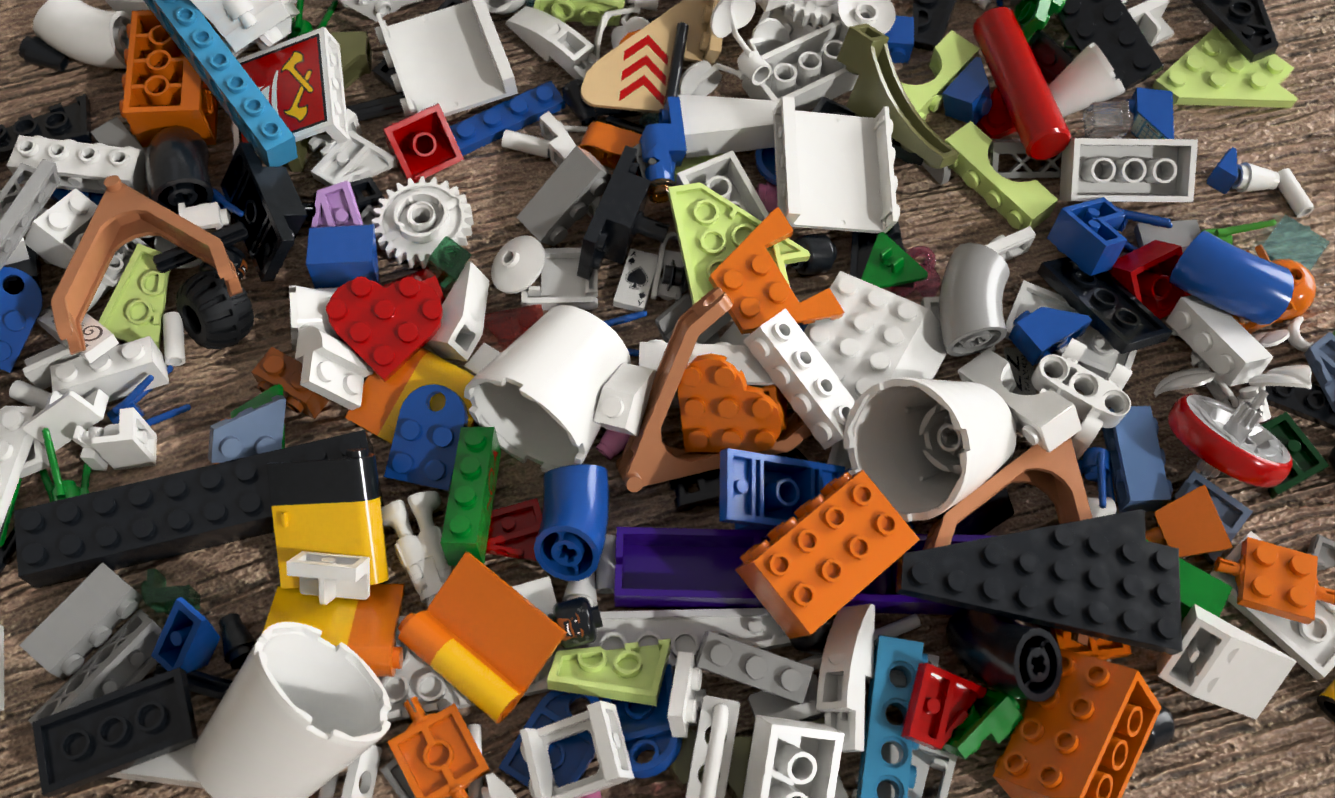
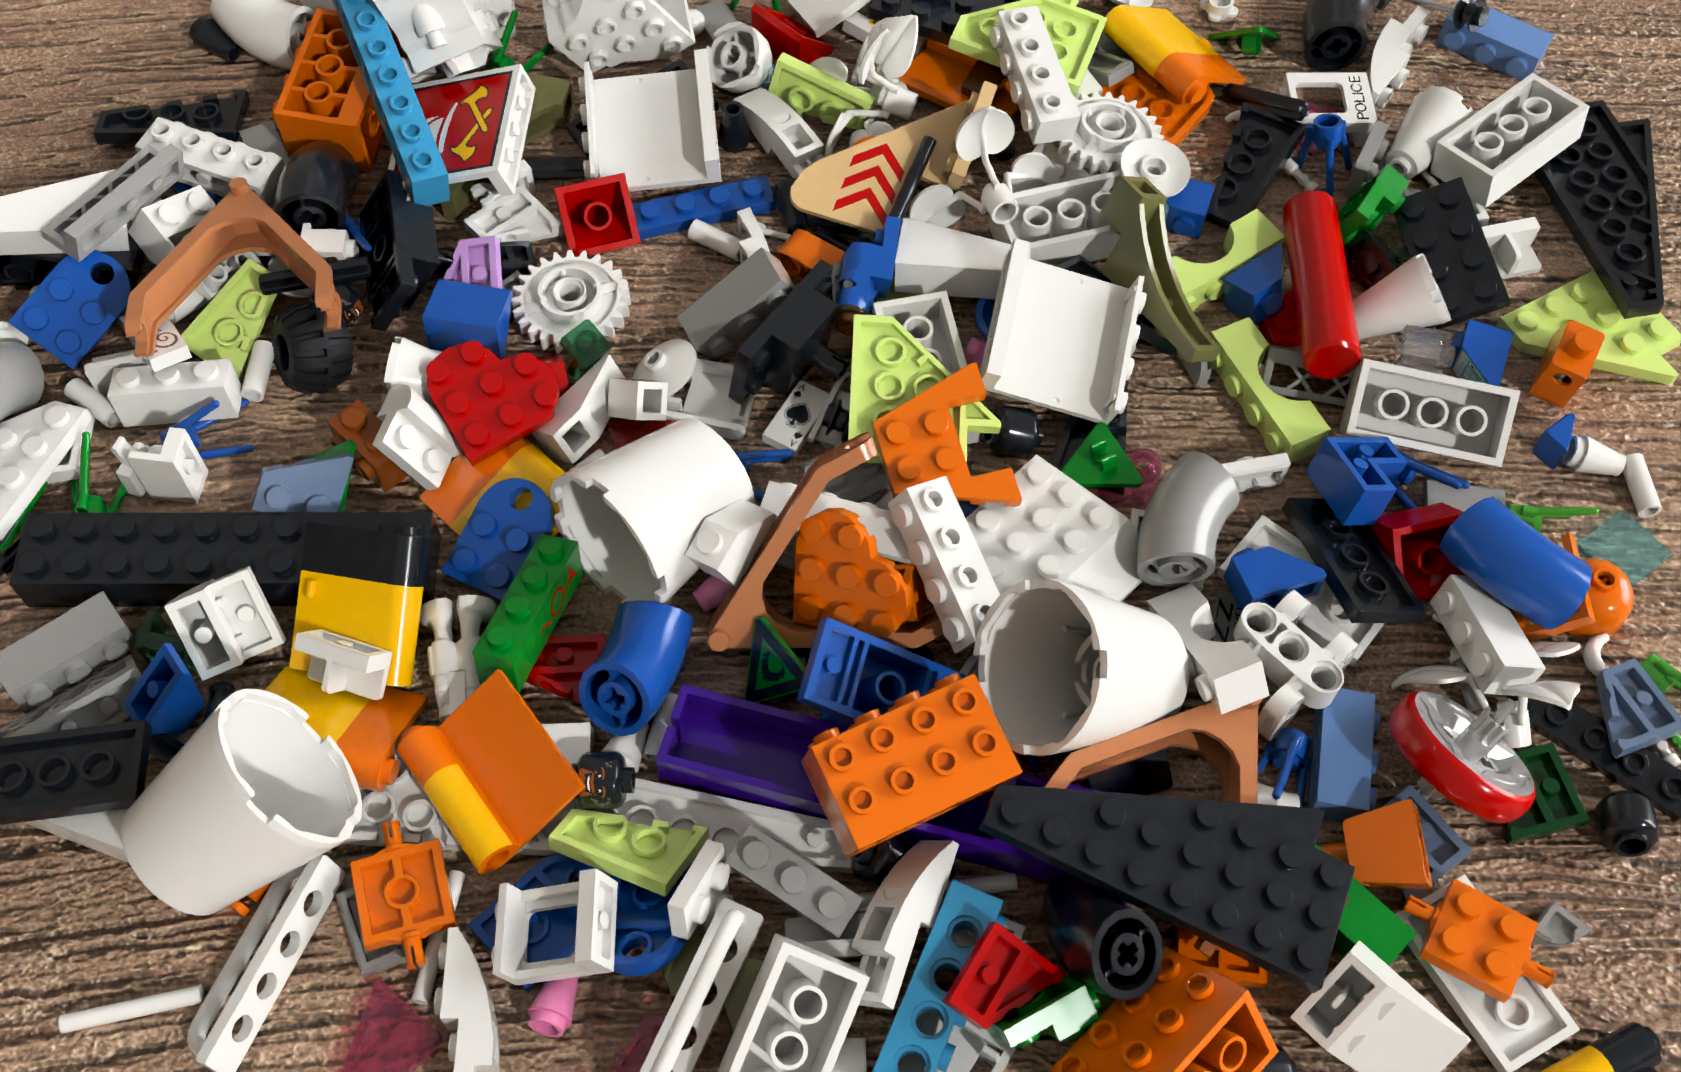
camera: 15 degrees right, 5 degrees down
(64, 414) = (114, 419): white panel -> none
(217, 565) = (225, 622): none -> white brick
(505, 294) = (637, 399): none -> white brick
(514, 44) = (733, 129): none -> black cone
(683, 494) = (772, 665): none -> black piece
(1217, 99) = (1570, 353): none -> orange torso

